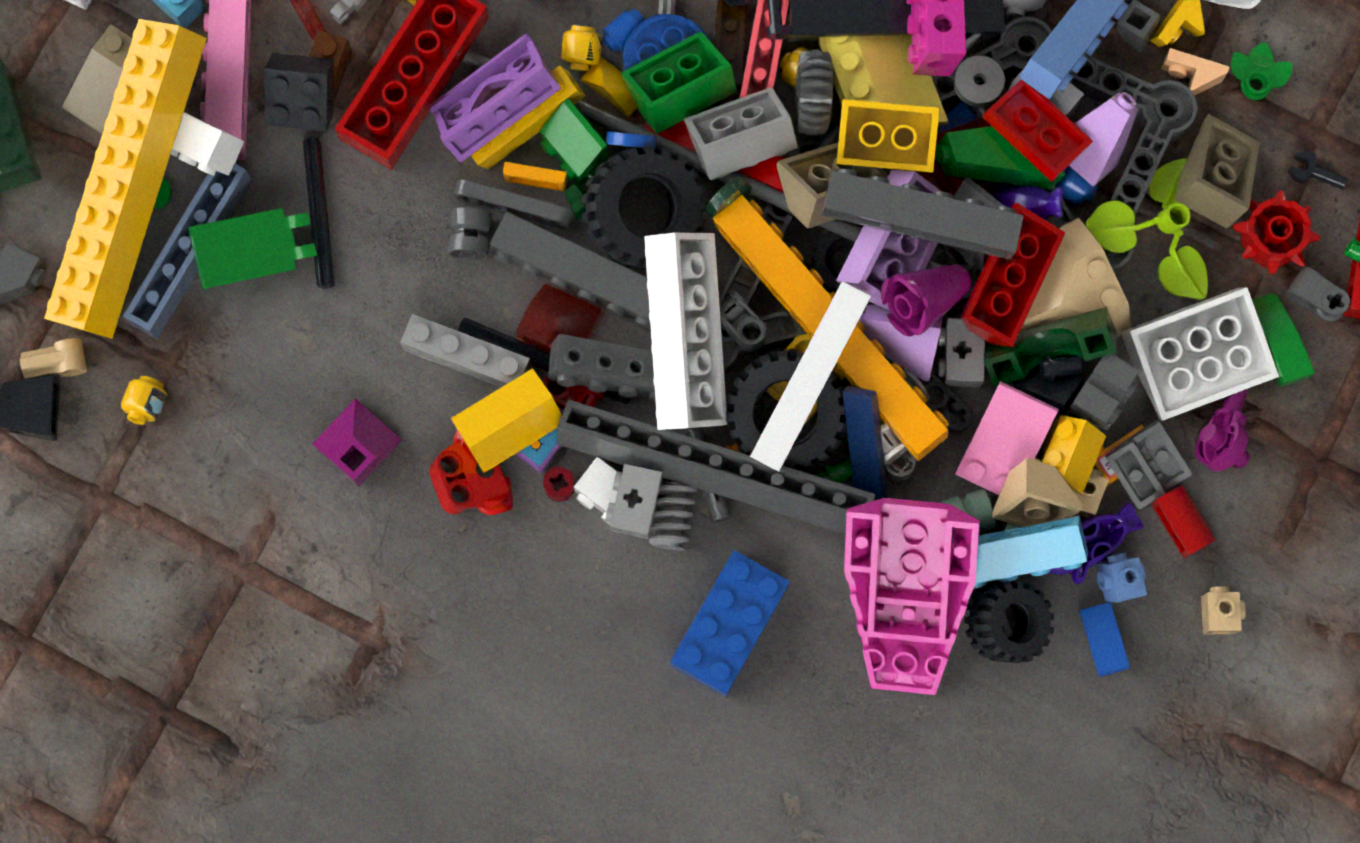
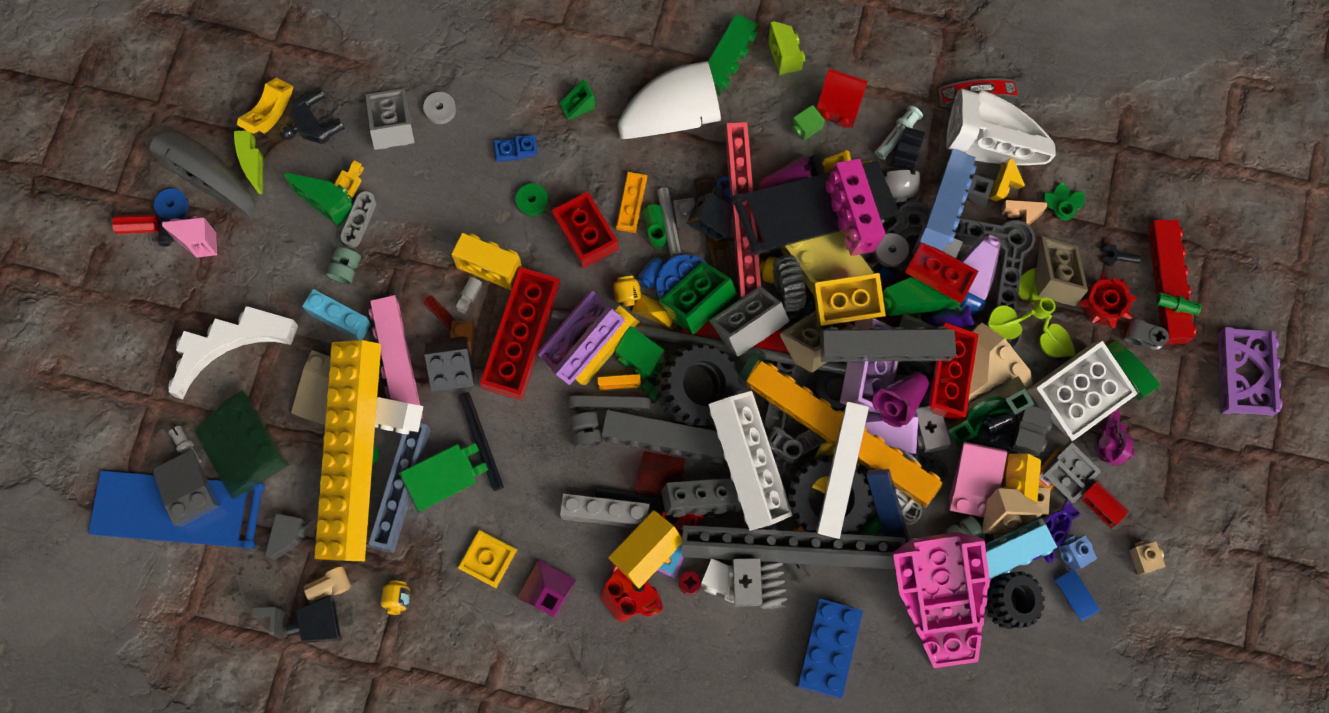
camera: 15 degrees left, 5 degrees down
(285, 379) = (487, 559): none -> yellow tile
(632, 140) = (676, 343): blue piece -> none

